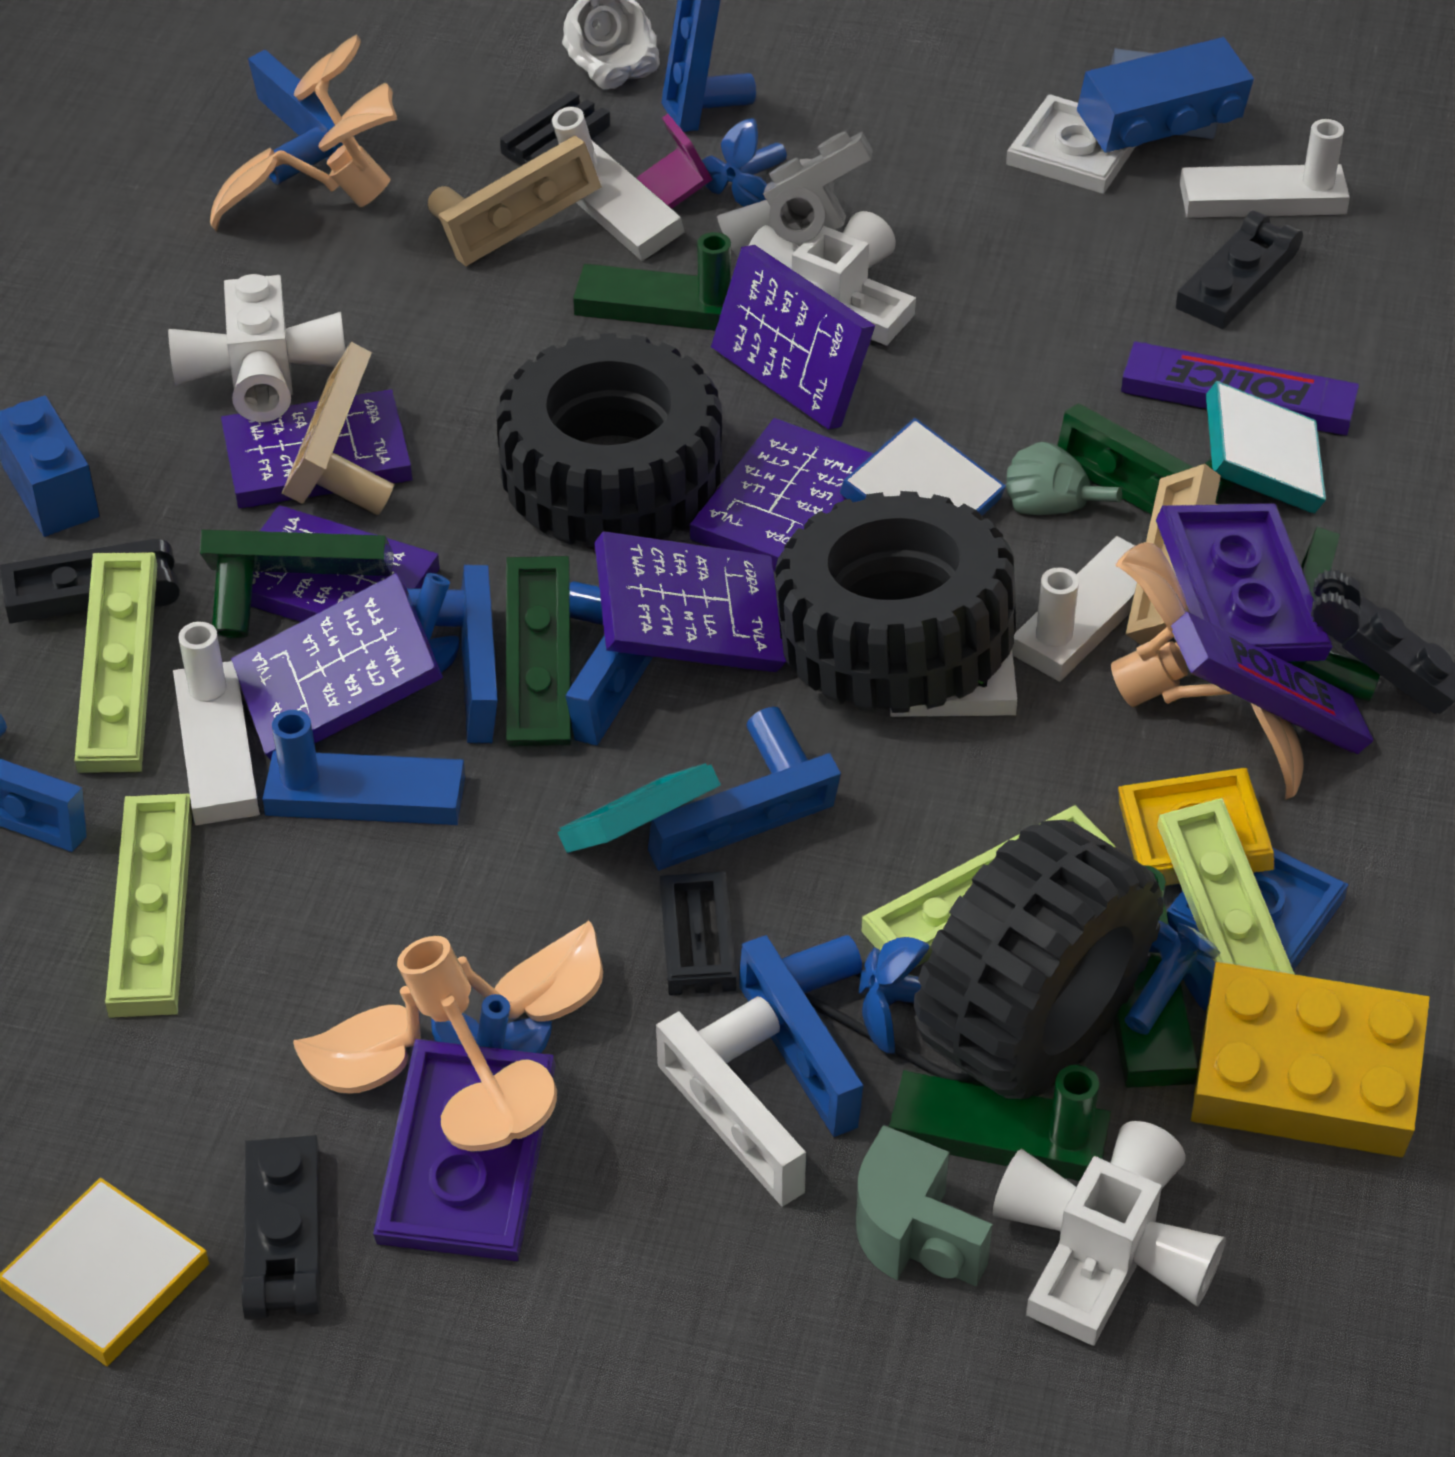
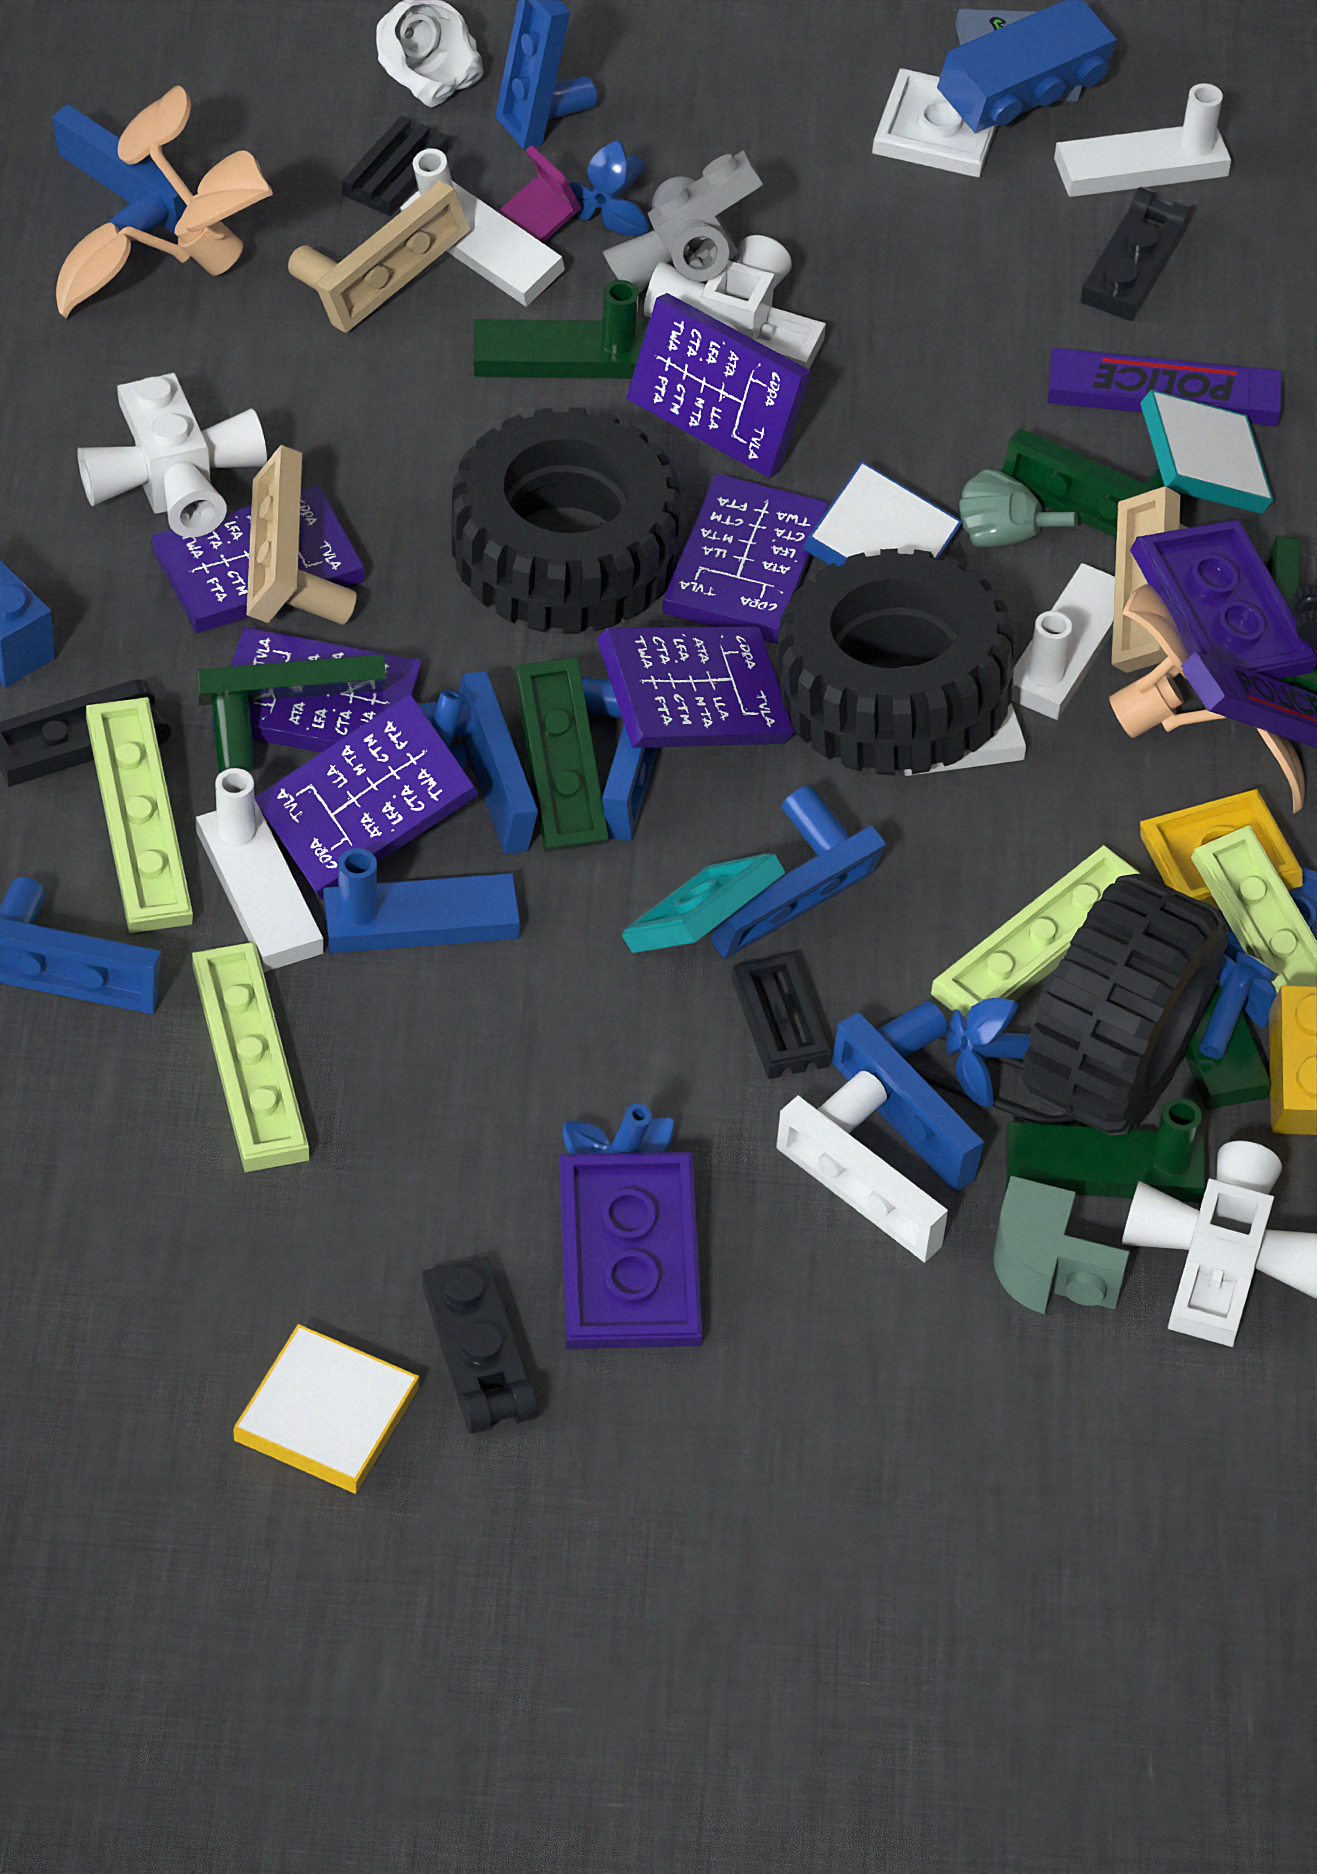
camera: 15 degrees left, 5 degrees up
(504, 1105) = (659, 1212): light nougat plant -> none

